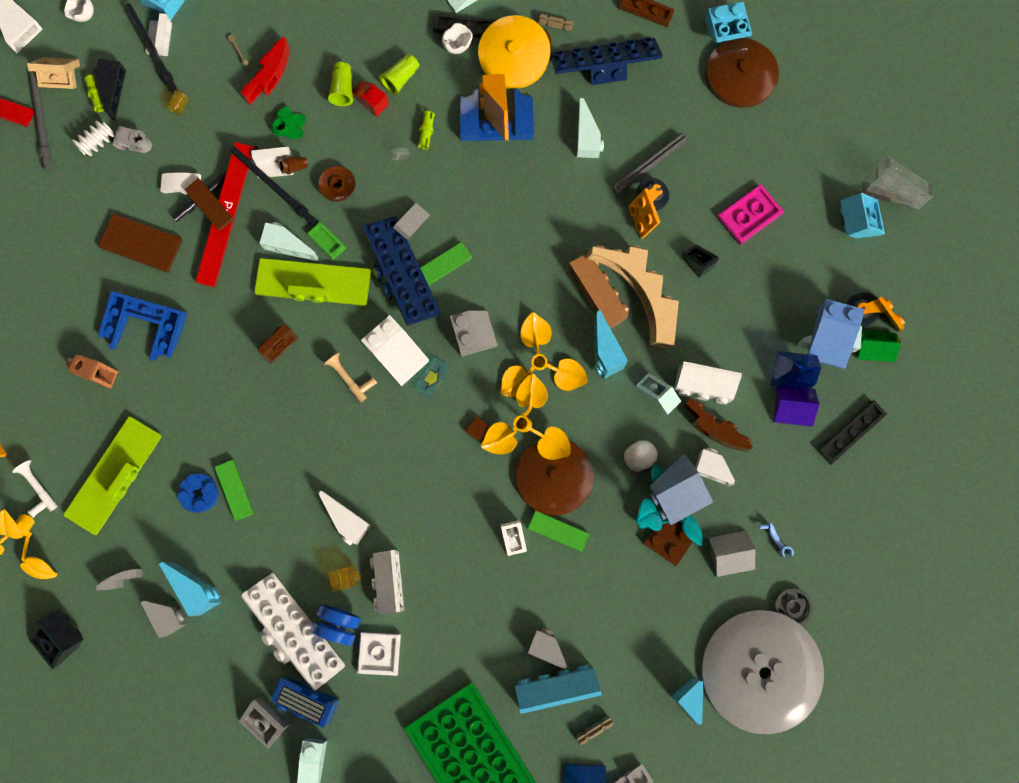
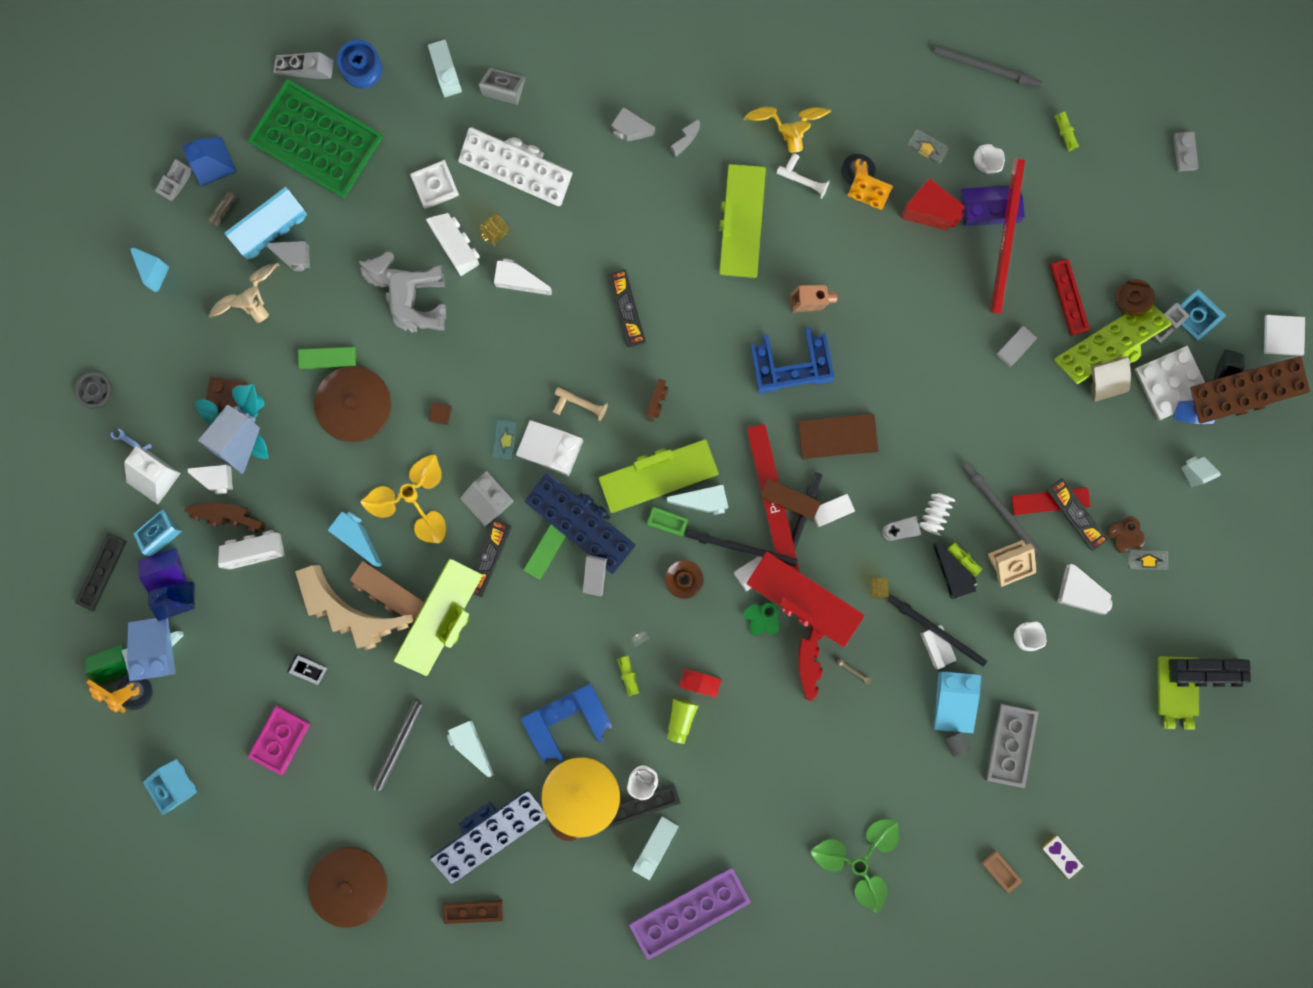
camera: 155 degrees right, 5 degrees up
(55, 638) = (712, 67): black slope -> none
(187, 497) = (651, 247): blue plate -> none
(191, 590) = (617, 158): medium azure slope -> none
(234, 490) = (629, 258): bright green tile -> none
(242, 114) = (805, 600): none -> red bracket
(261, 445) = (626, 308): none -> tile
(292, 164) = (736, 577): reddish brown cone -> none
(305, 702) = (480, 115): wedge -> none
(334, 628) = (479, 187): blue wheel -> none
(341, 85) = (732, 681): lime plant -> none
(459, 557) = (403, 292): none -> light grey animal
(495, 102) = (570, 729): light orange slope -> none
(498, 282) = (490, 554): none -> tile
(500, 438) = (414, 412): yellow plant -> none
(513, 537) = (364, 334): white slope -> none
(556, 22) = (556, 852): dark tan axle -> none
(562, 244) = (439, 618): none -> bracket
(608, 612) = (245, 299): none -> tan plant
(640, 455) = (283, 458): white hair -> none
(650, 197) = (379, 710): light orange plate -> none
(658, 393) = (292, 522): light aqua slope -> none
(727, 22) = (381, 928): medium azure slope -> none
(732, 553) = (166, 411): light grey slope -> none
(733, 667) = (120, 337): light grey dish -> none
(769, 497) = (149, 474): none -> white slope
(787, 442) = (156, 533): none -> medium azure slope
(897, 185) = (147, 832): clear wedge -> none

